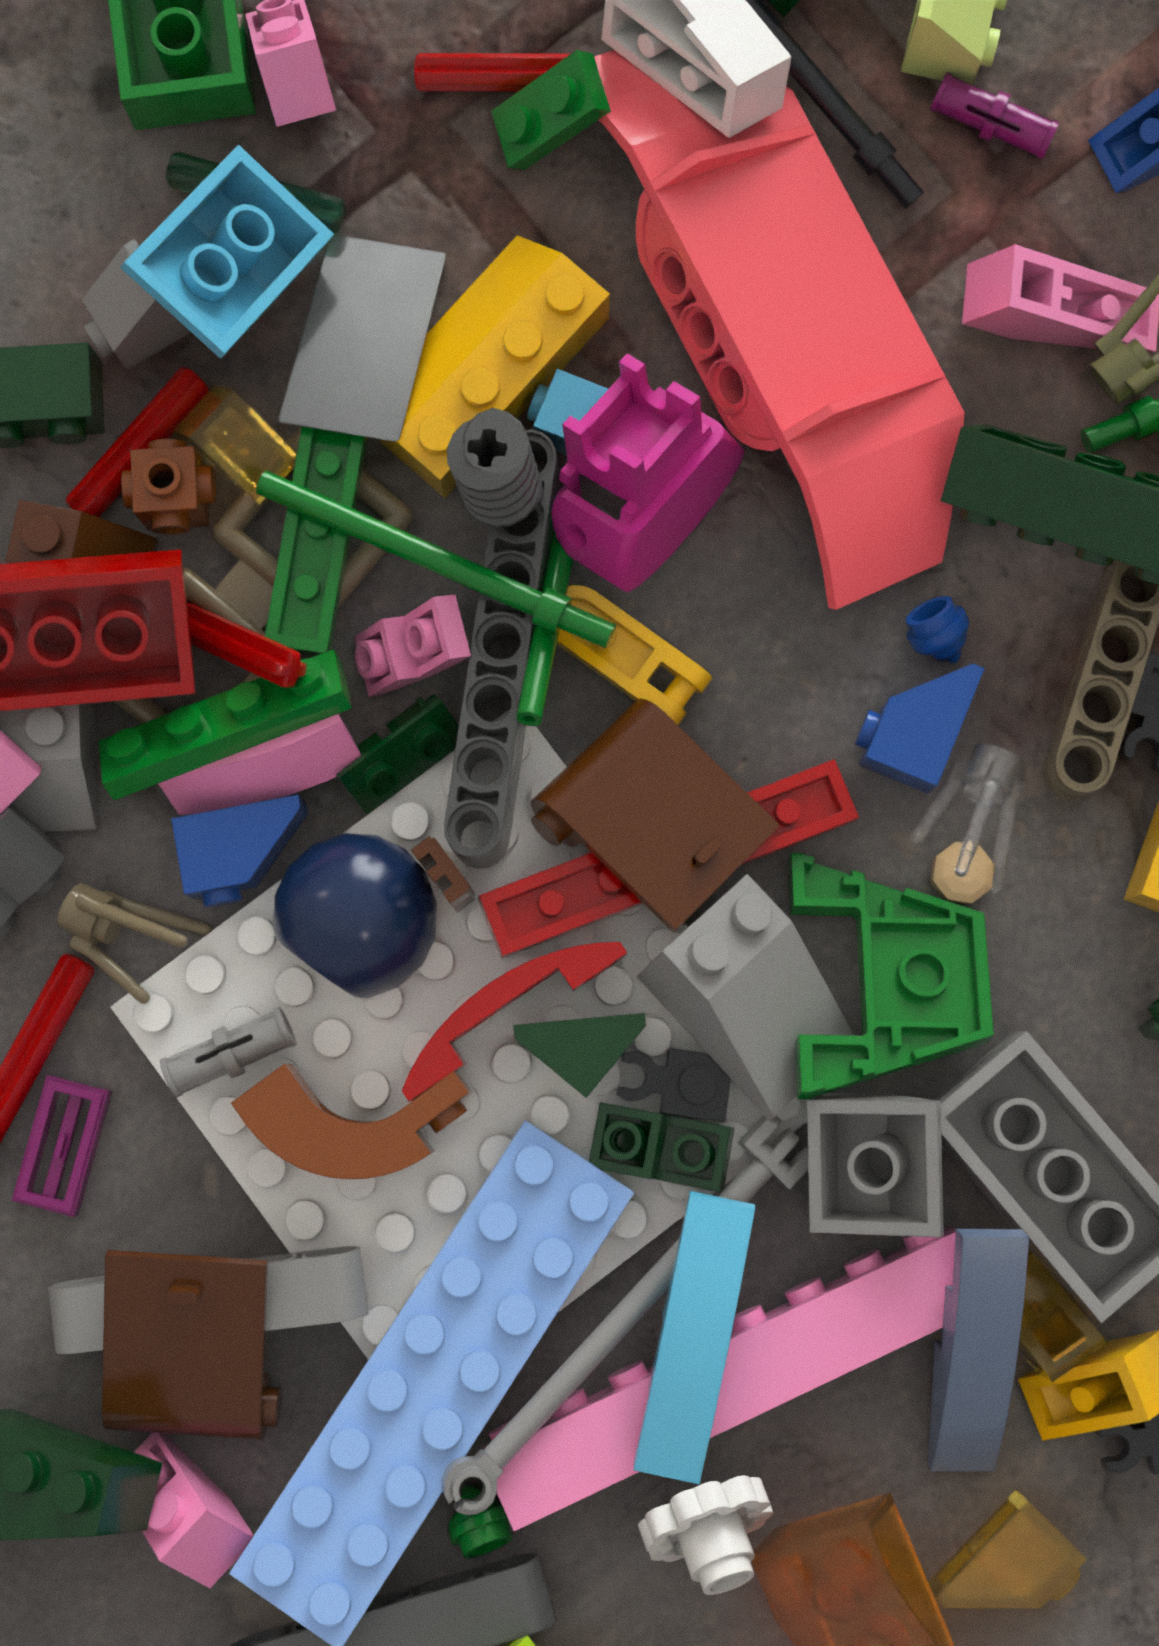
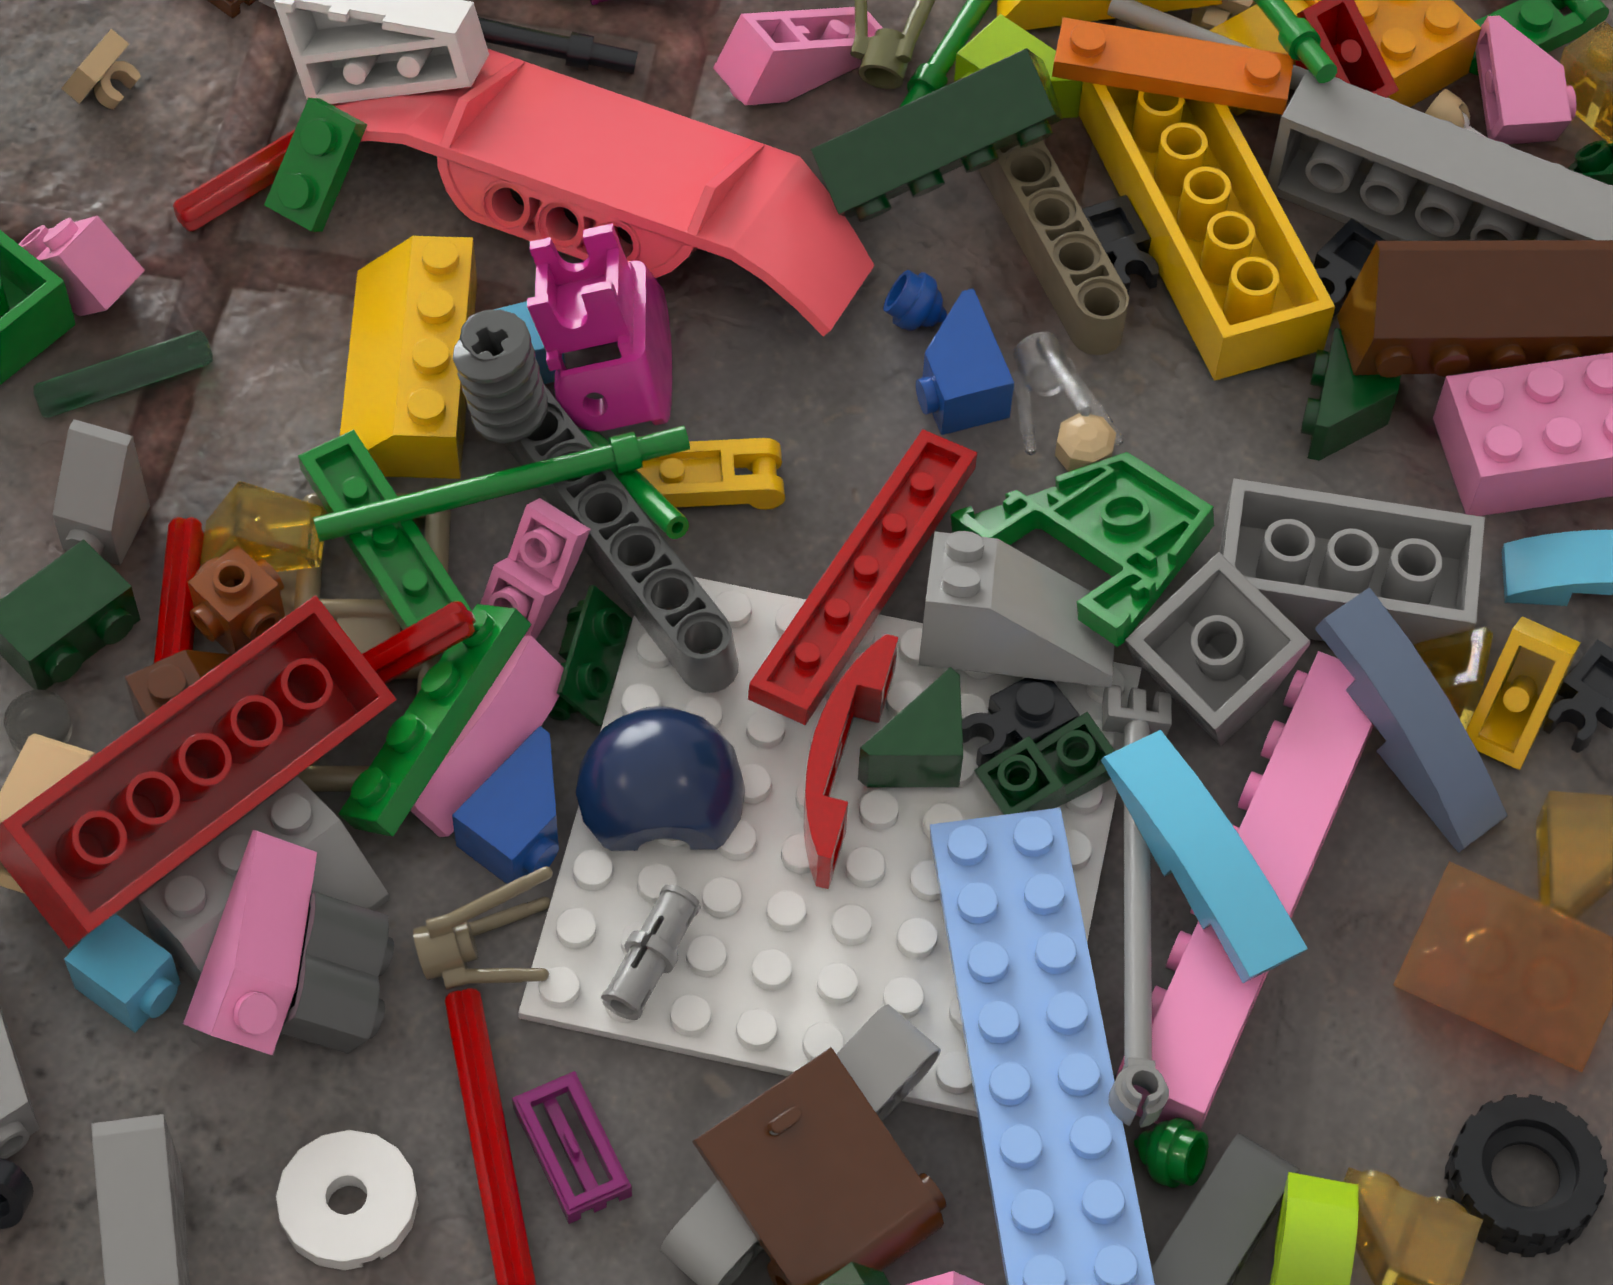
camera: 45 degrees left, 25 degrees down
(228, 251) = (153, 384): medium azure slope -> none
(313, 1138) = (797, 951): dark orange arch -> none
(363, 338) = (303, 400): sticker -> none
(444, 873) = (707, 705): reddish brown tile -> none
(648, 806) = (823, 541): reddish brown door -> none
(710, 1531) = (1345, 990): white plant -> none

